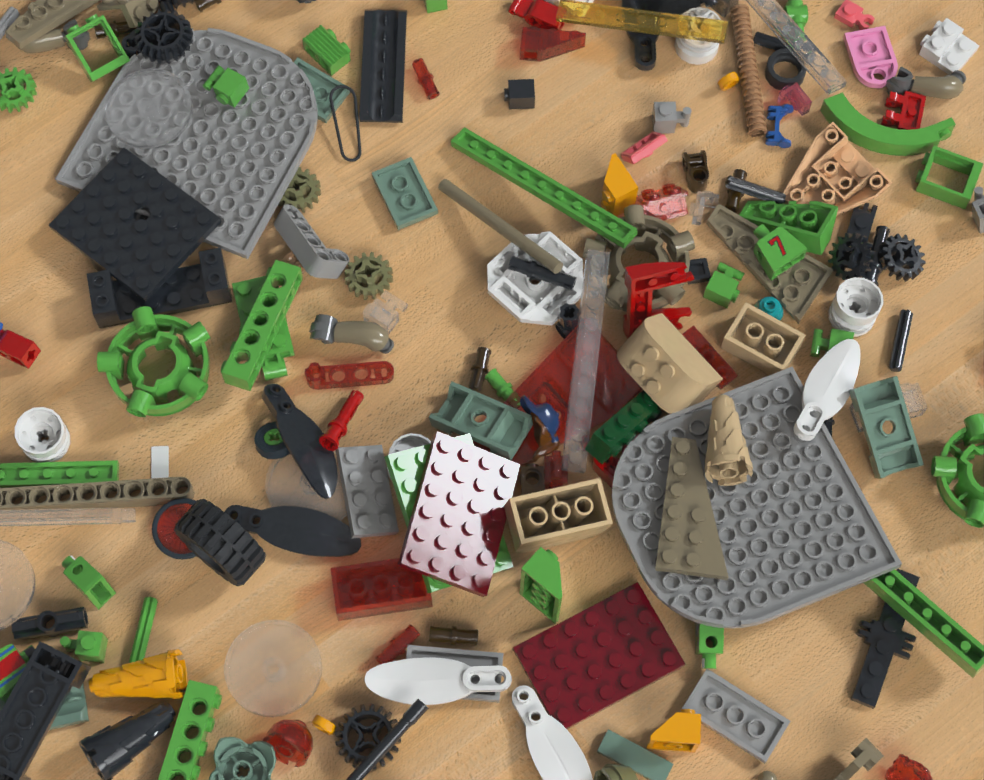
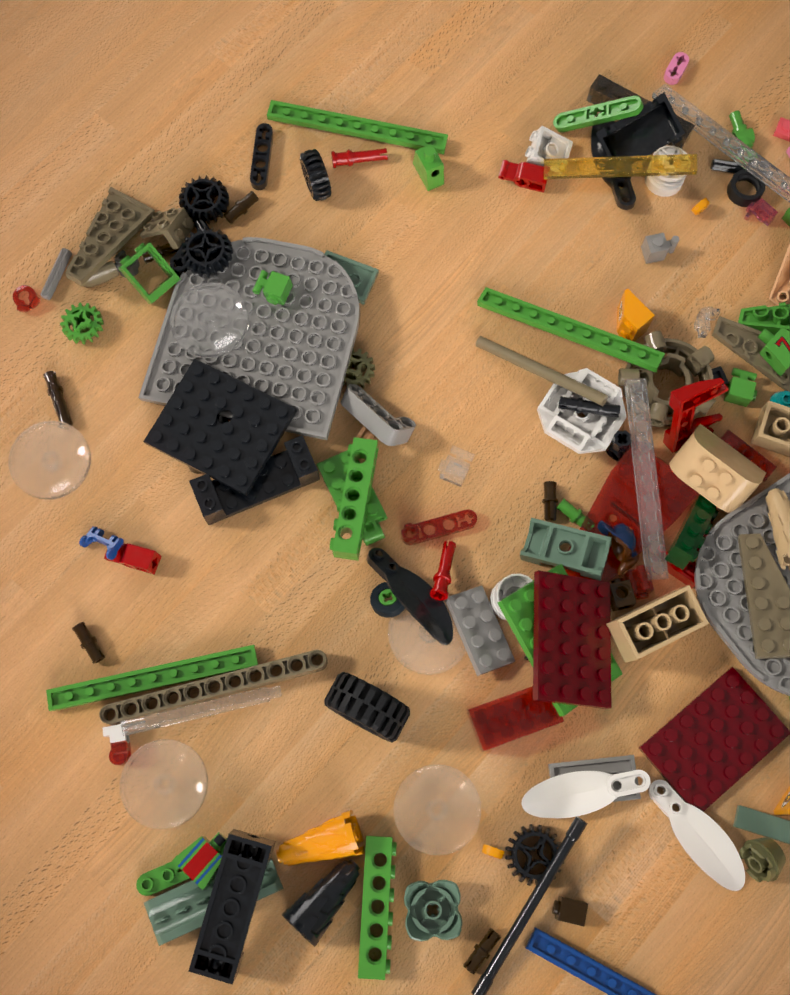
camera: 10 degrees left, 5 degrees up
(35, 625) = (241, 801): black piece -> none
(41, 423) = (178, 624): white wheel -> none
(87, 580) = (252, 760): bright green torso -> none
(88, 646) = (267, 821): bright green brick -> none
(143, 629) = (312, 796): bright green axle -> none
(160, 462) = (290, 639): white sticker -> none
(164, 525) = (311, 693): clear red wheel -> none
(183, 378) = (294, 561): bright green piece -> none
(290, 741) = (468, 872): clear red cylinder -> none
(298, 530) = (427, 677): black plant -> none
(326, 49) = (350, 239): bright green brick -> none
(336, 124) = (391, 299): black piece -> none
(356, 332) = (436, 489): dark tan piece -> none
(370, 266) = (436, 442): olive gear -> none
(383, 66) = (402, 244): black plate -> none
(398, 645) = (539, 766): clear red pin -> none
(404, 193) = (448, 355): sand green plate -> none
(425, 79) = (441, 249): clear red axle -> none
(453, 635) = (586, 746): dark brown pin -> none
(520, 94) = (526, 249): black brick -> none
(542, 583) = (663, 690): bright green slope -> none
(544, 44) = (535, 201): clear red slope -> none
(643, 147) = (643, 277): coral plate -> none
(665, 202) = (674, 322): clear red bracket -> none
(696, 167) = (691, 287): dark brown piece -> none
(734, 196) = (730, 301): dark brown pin -> none
(748, 70) = (715, 195): medium nougat piece -> none
(754, 190) = (747, 298): black axle -> none
(776, 113) = (750, 249): blue piece -> none

